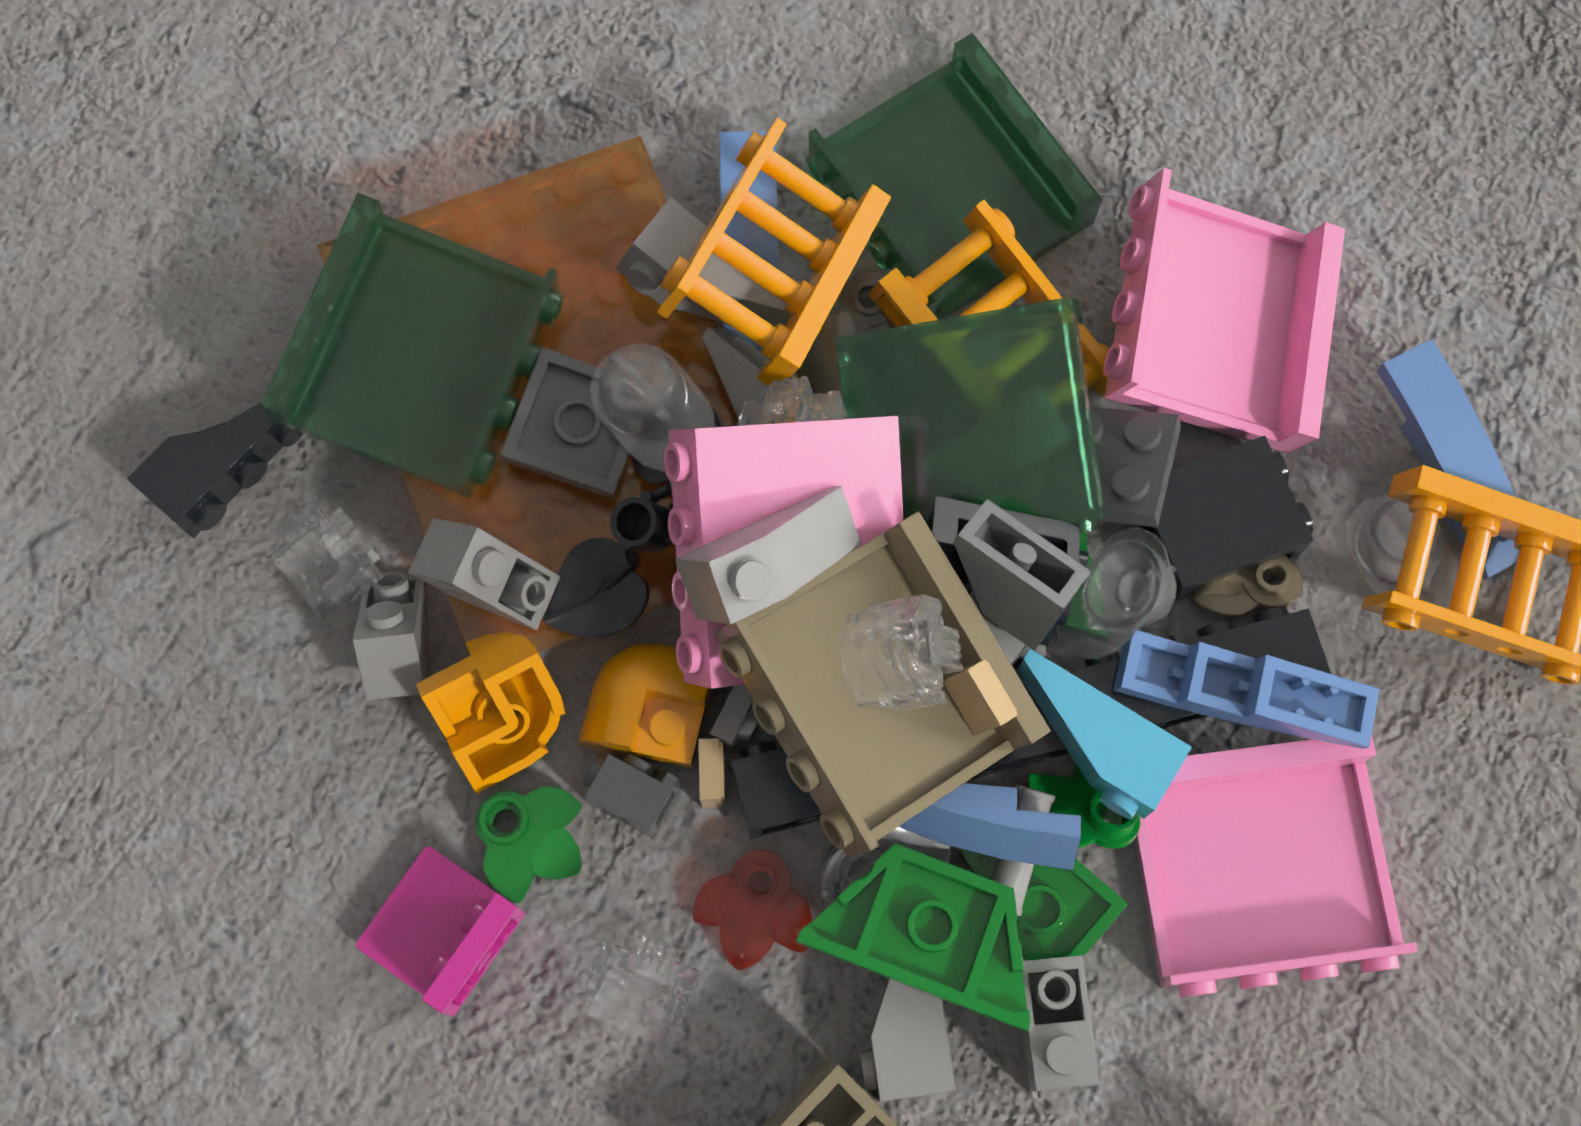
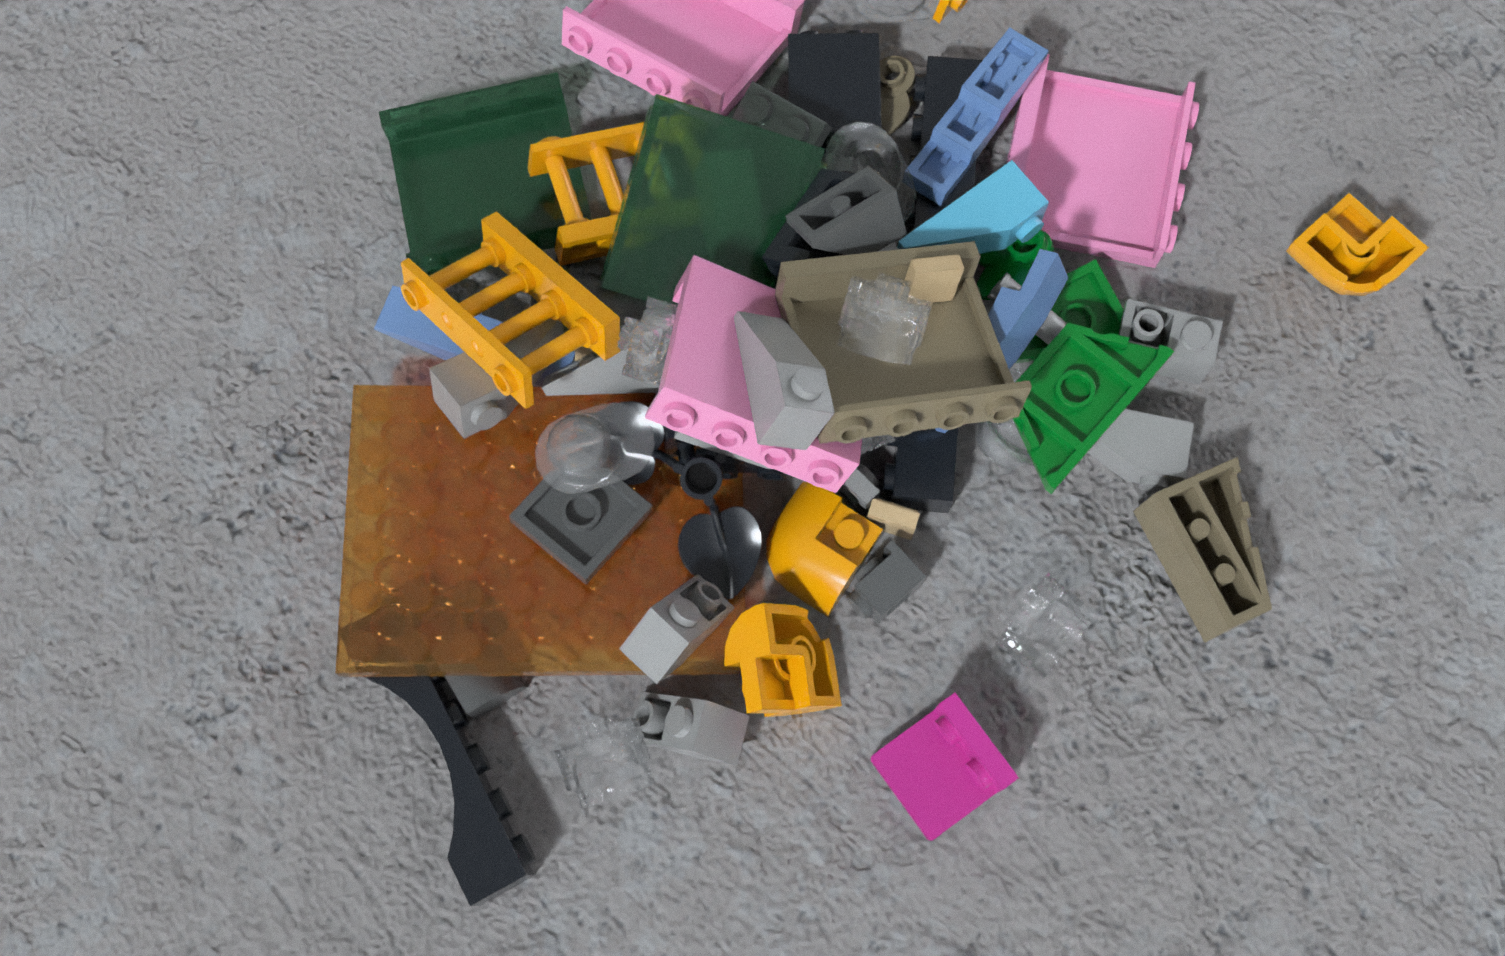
camera: 65 degrees left, 0 degrees up
(412, 350) = (468, 618): clear green panel -> none
(536, 844) = (896, 673): green plate -> none
(749, 917) = (1011, 530): clear red plate -> none

